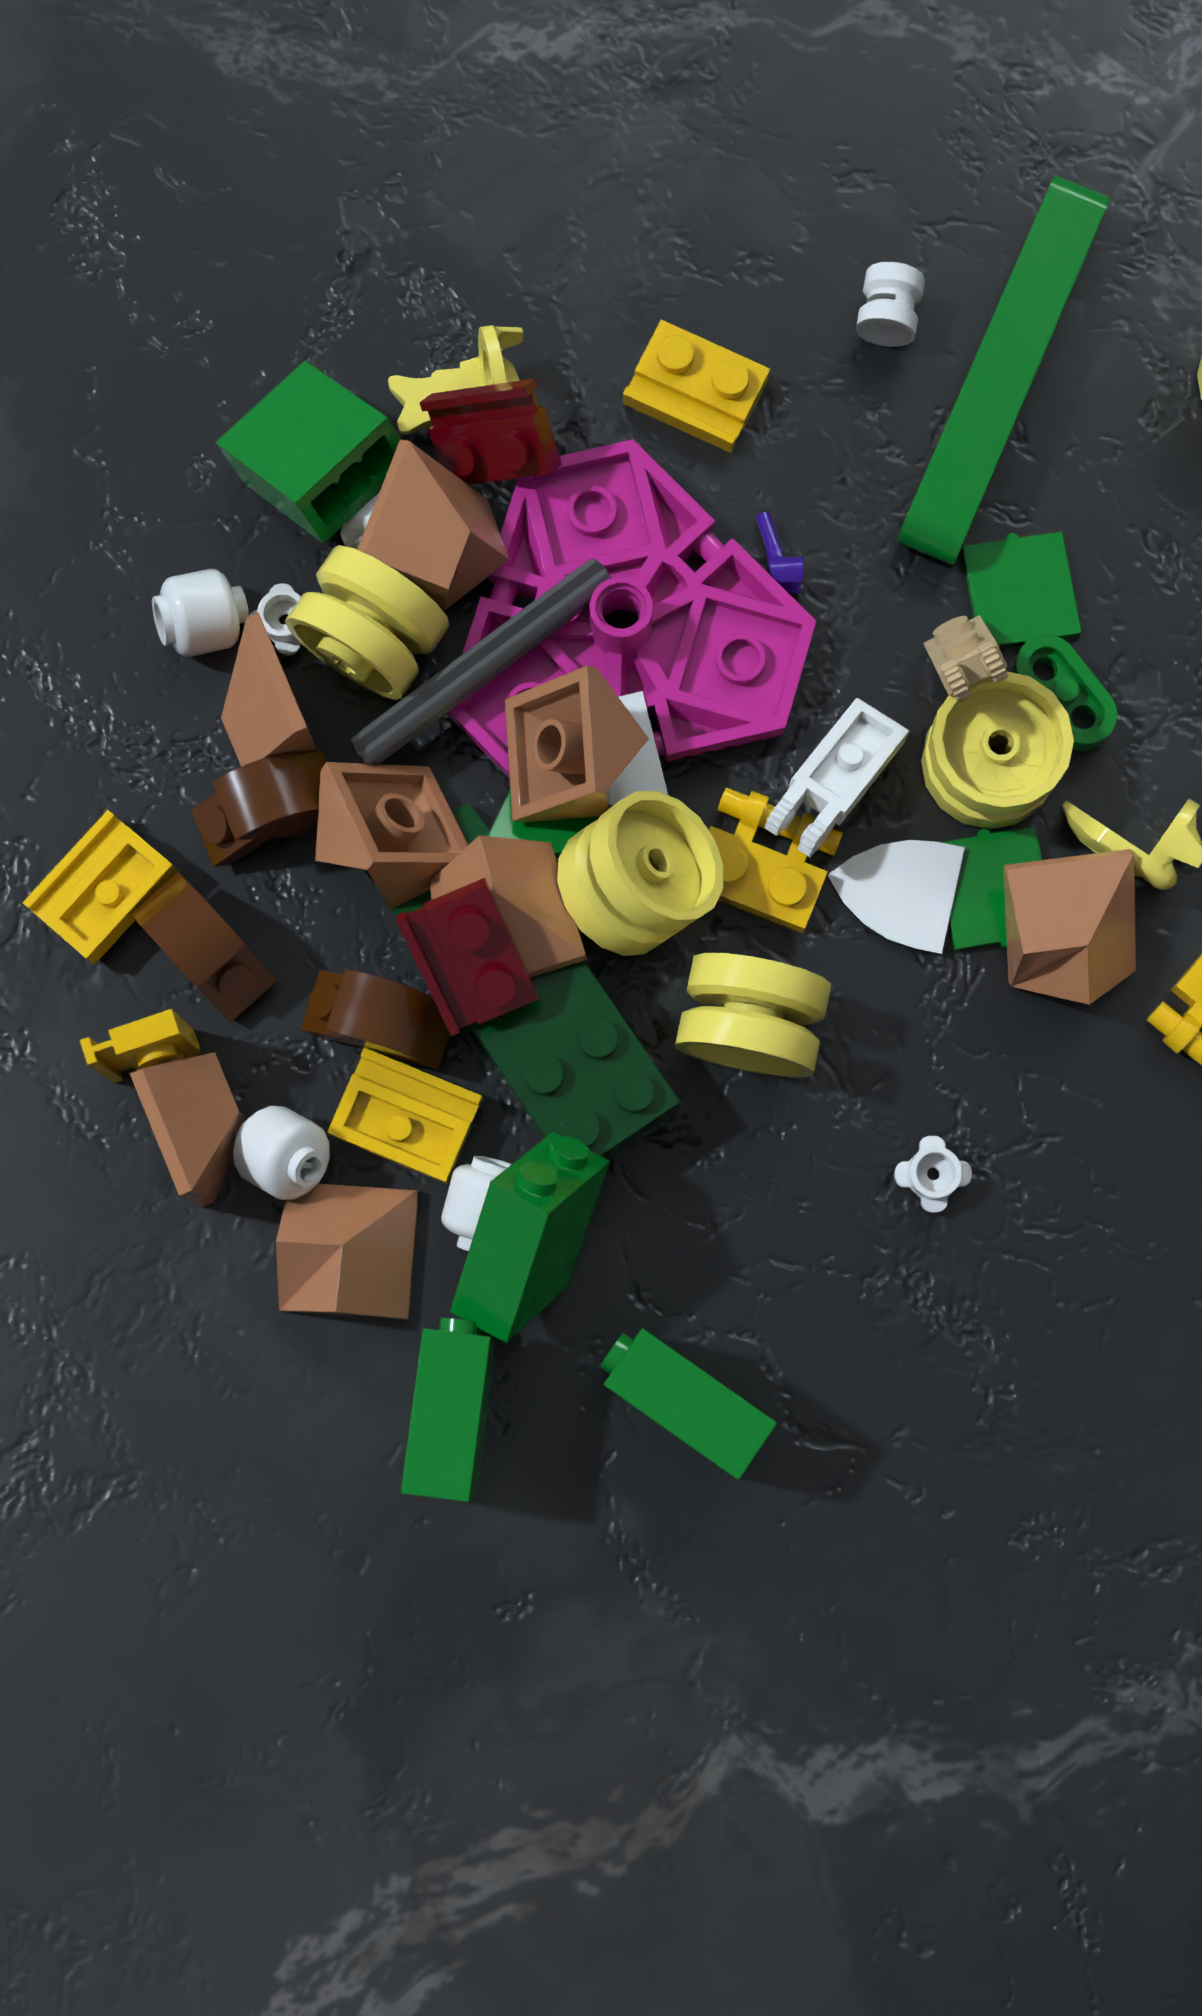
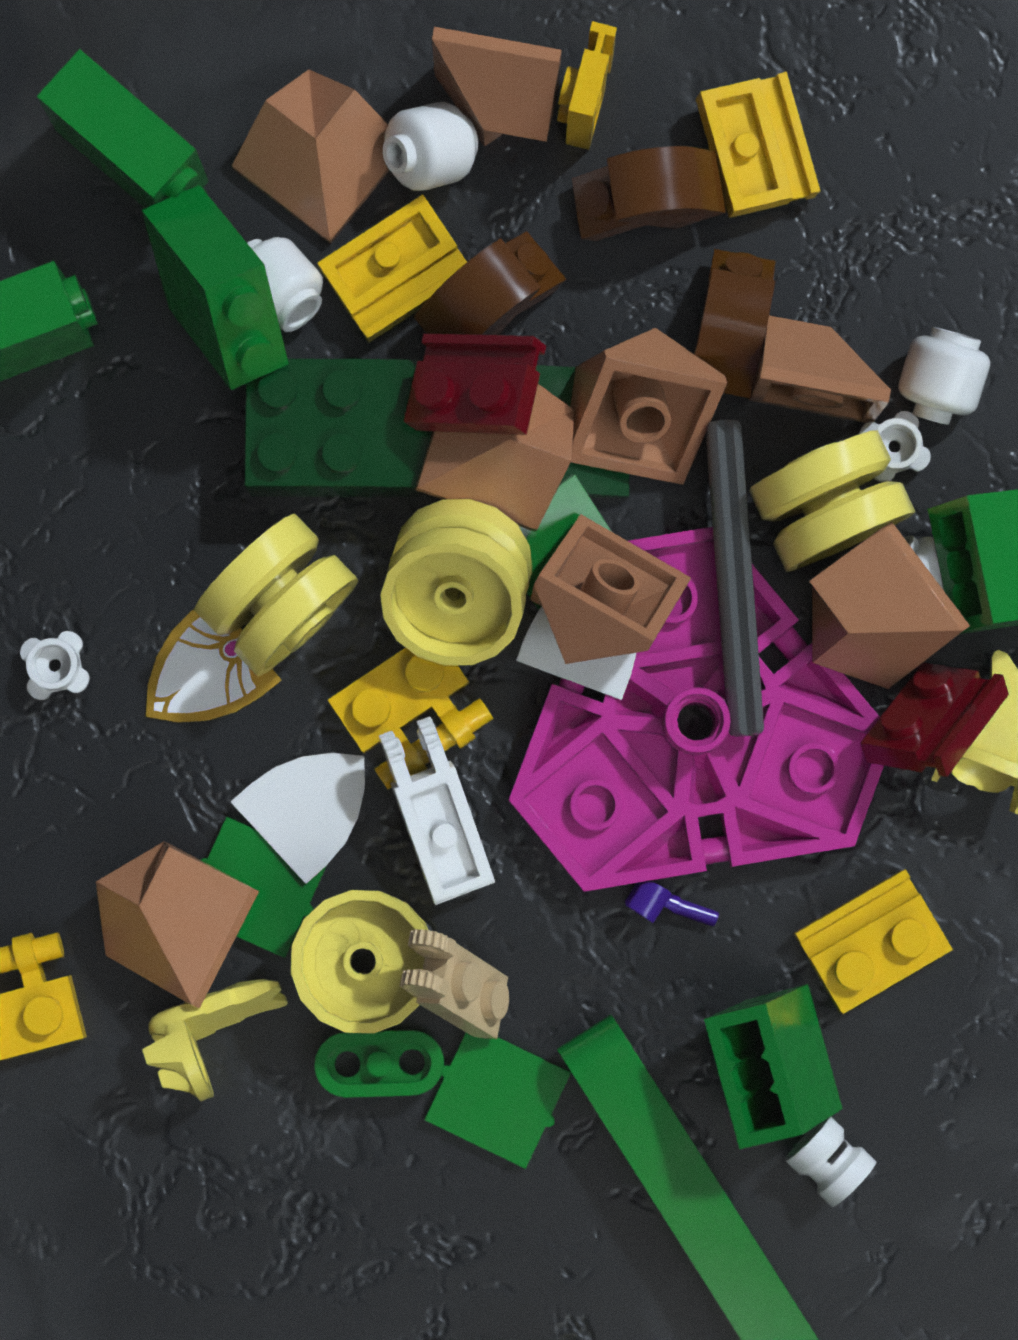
camera: 120 degrees right, 5 degrees up
(854, 375) = (773, 1066): none -> green brick
(856, 1054) = (201, 675): none -> sticker

